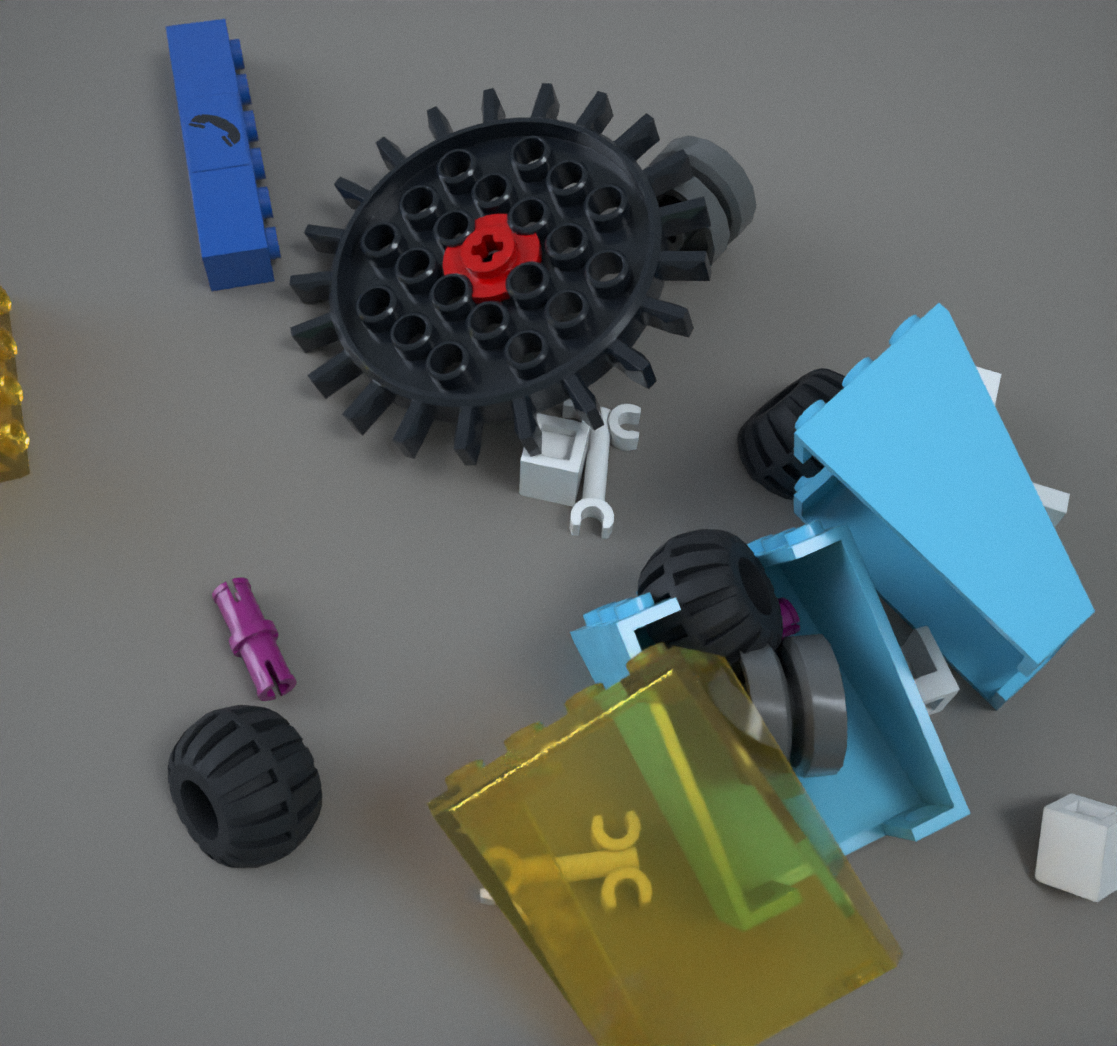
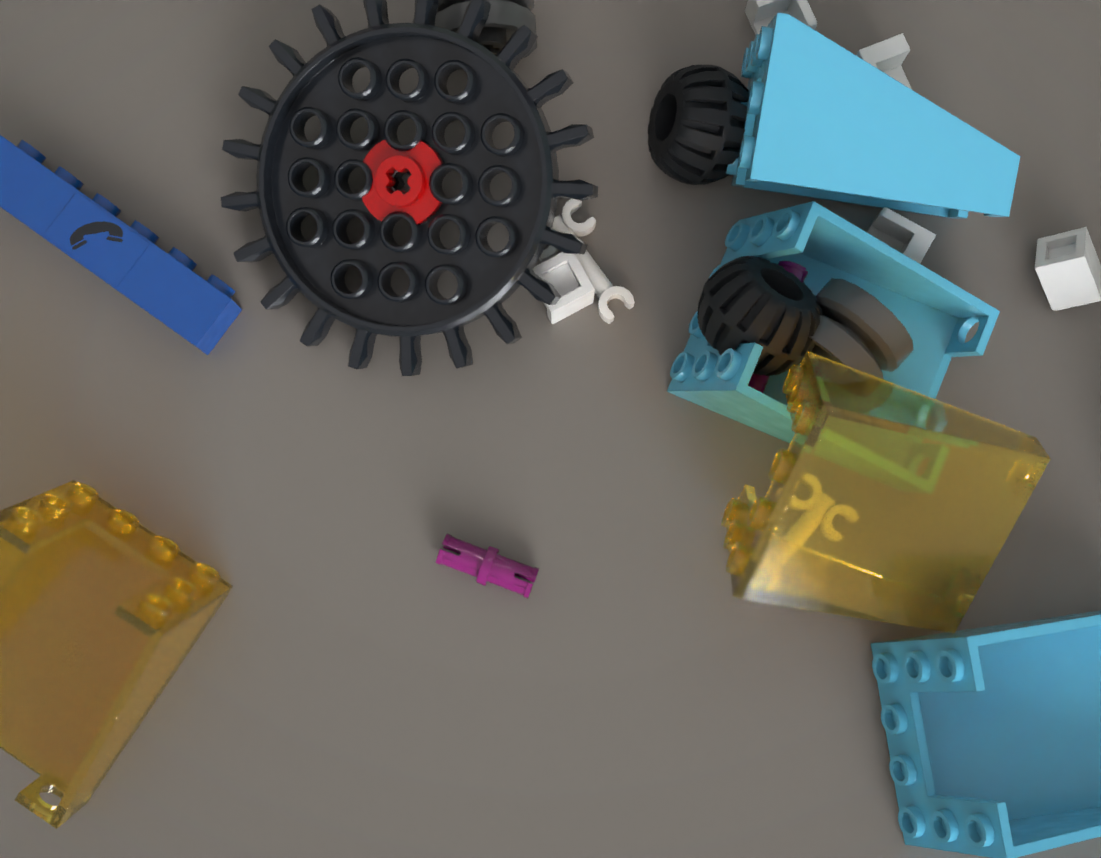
camera: 35 degrees left, 20 degrees up
(245, 786) = (574, 655): black wheel -> none

